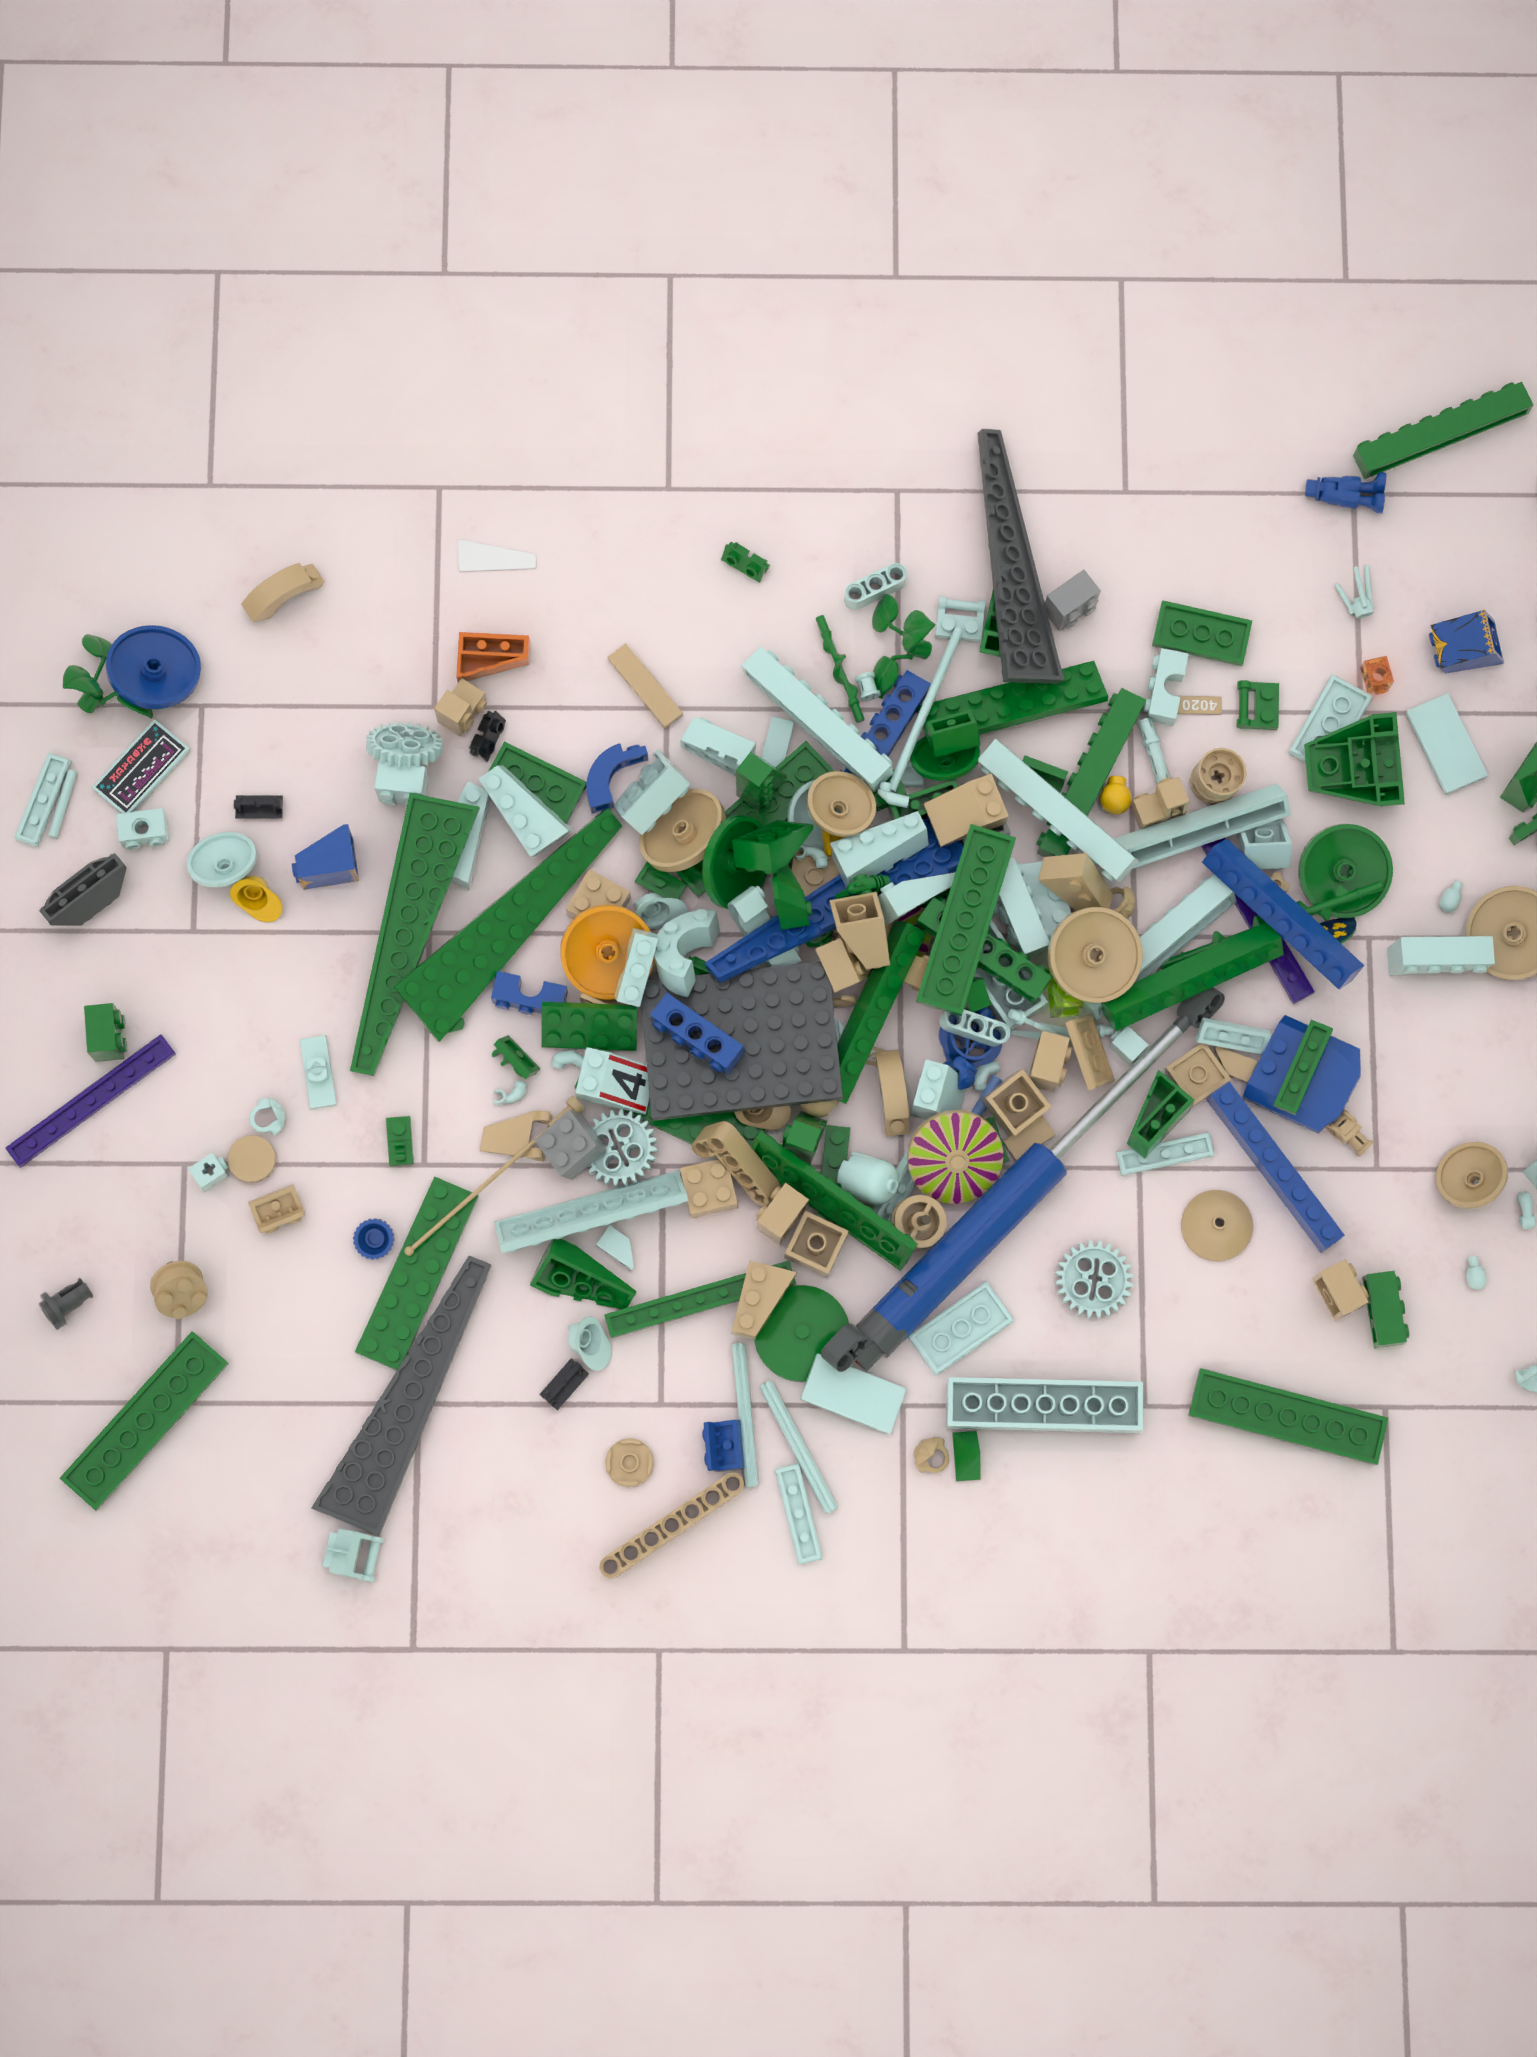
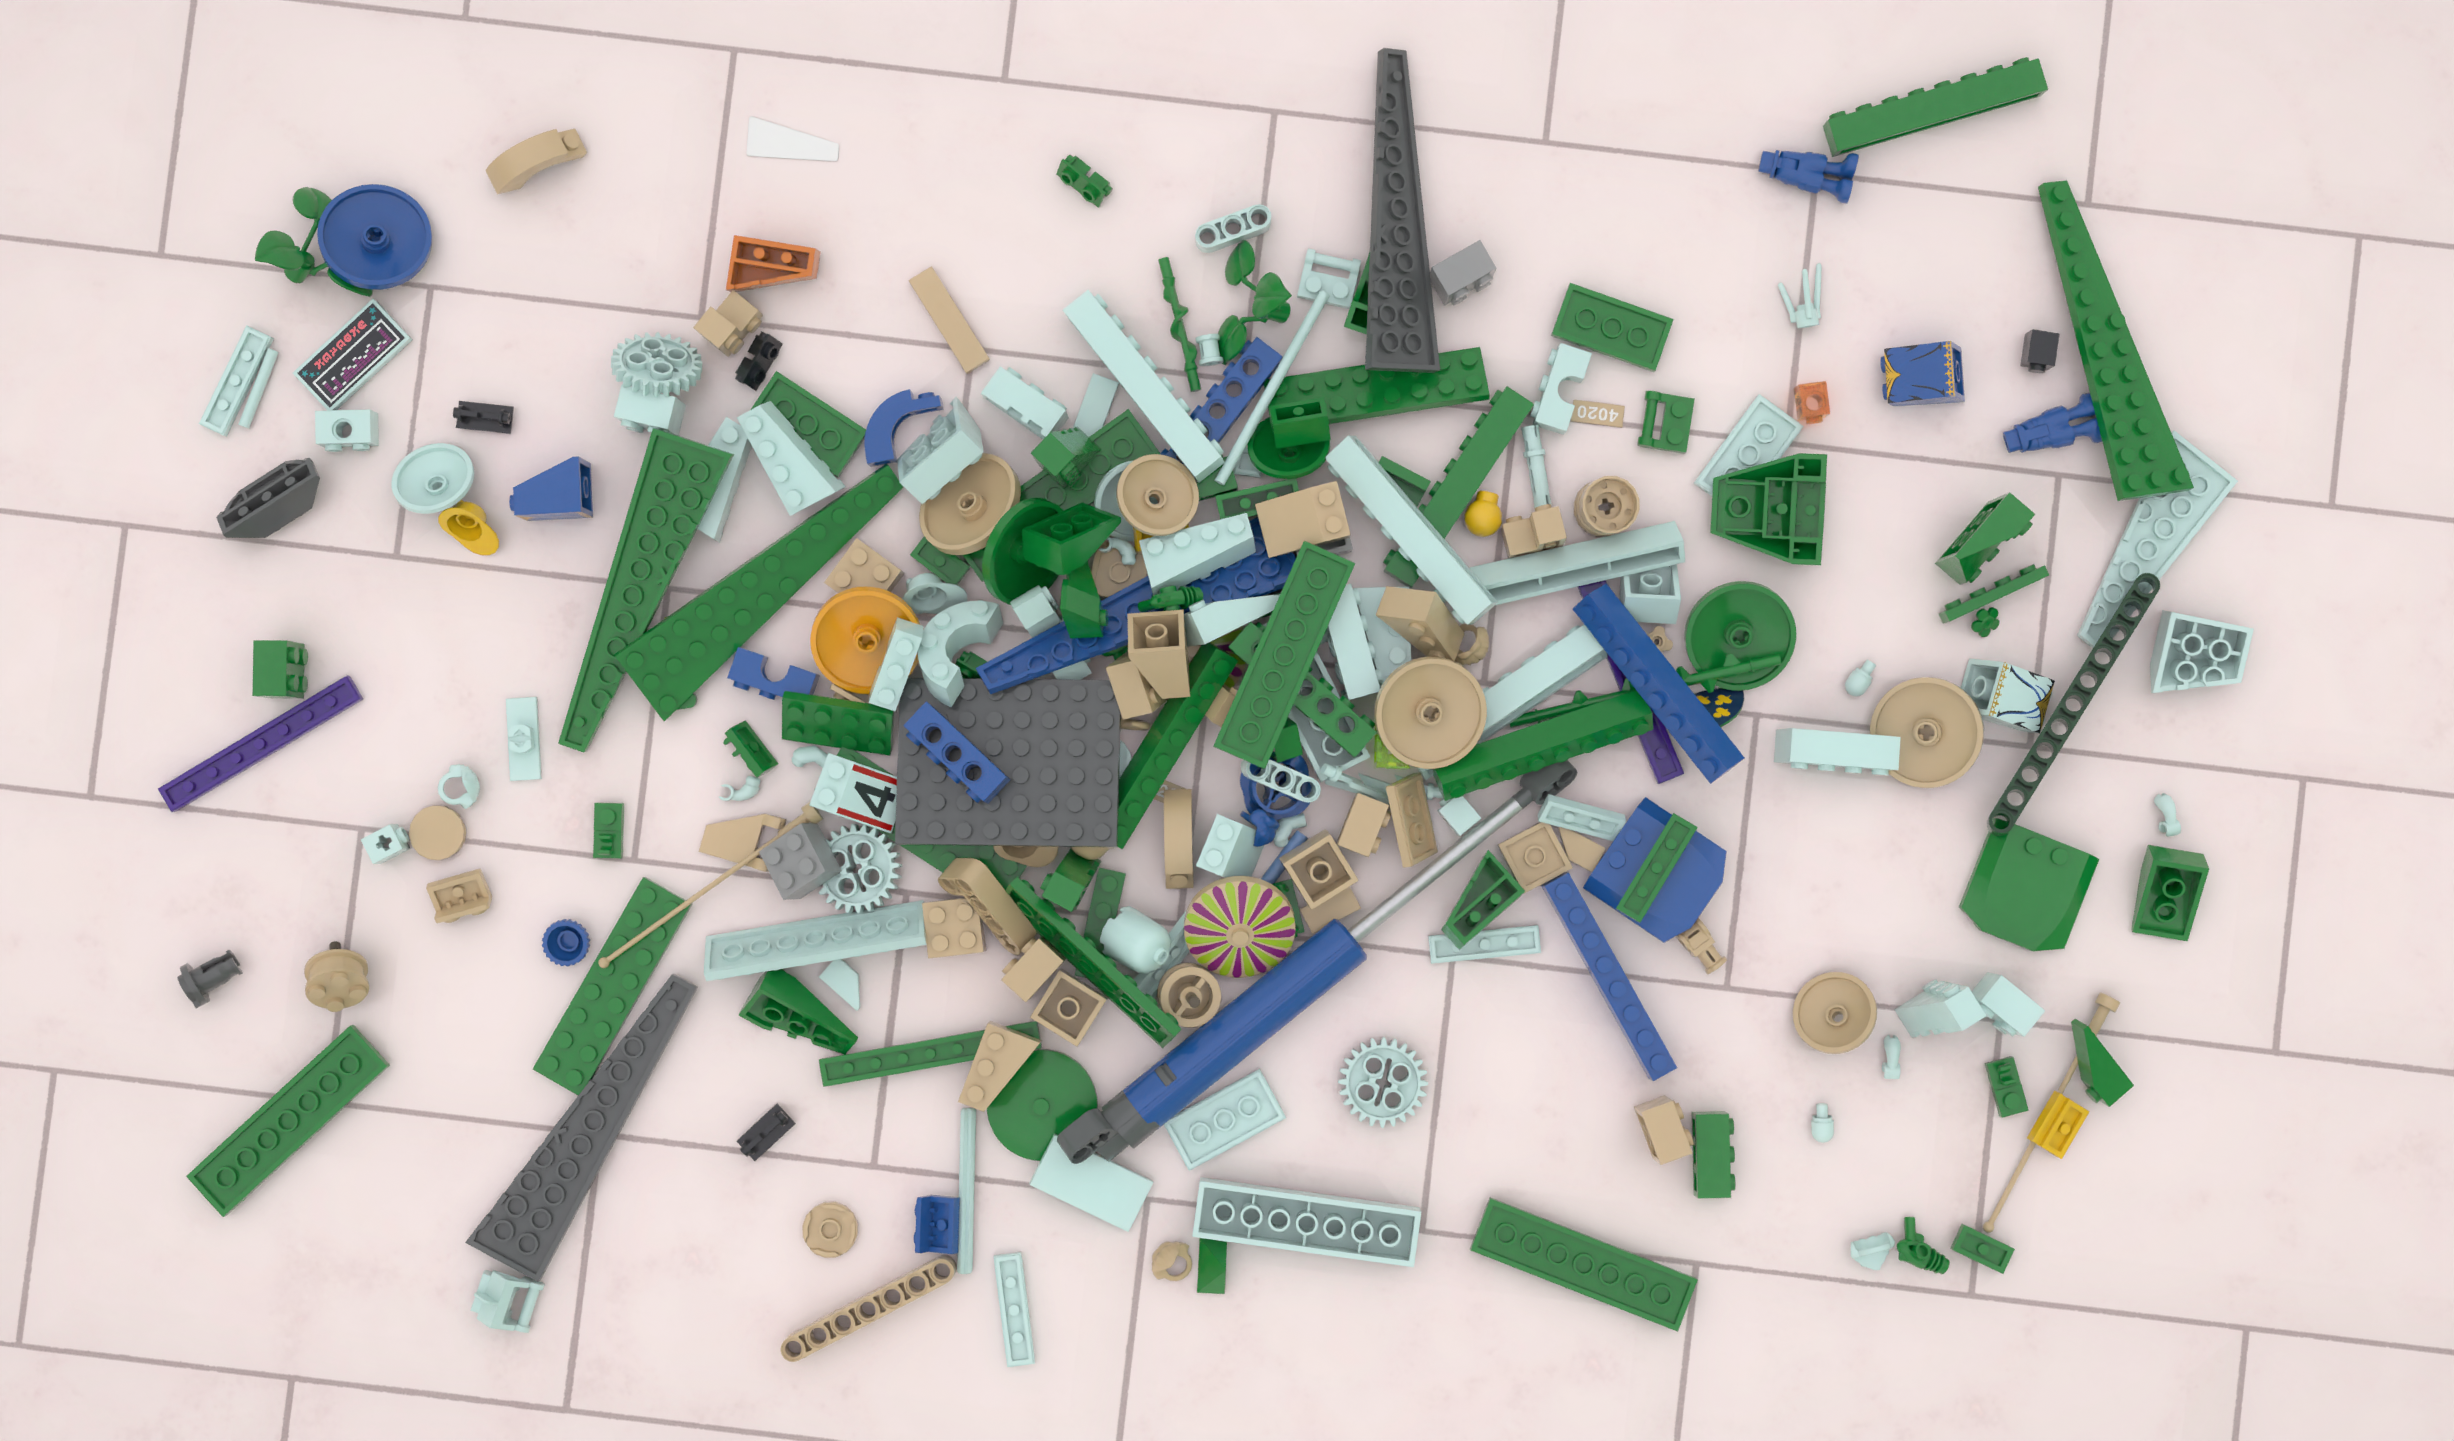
camera: 15 degrees right, 10 degrees up
(590, 1342) = (799, 1091): light aqua piece -> none
(798, 1447) = (1022, 1234): light aqua axle -> none
(890, 797) = (1216, 493): light aqua arm -> none
(1205, 1236) = (1513, 1028): tan dish -> none
(1446, 744) = (1881, 493): light aqua tile -> none

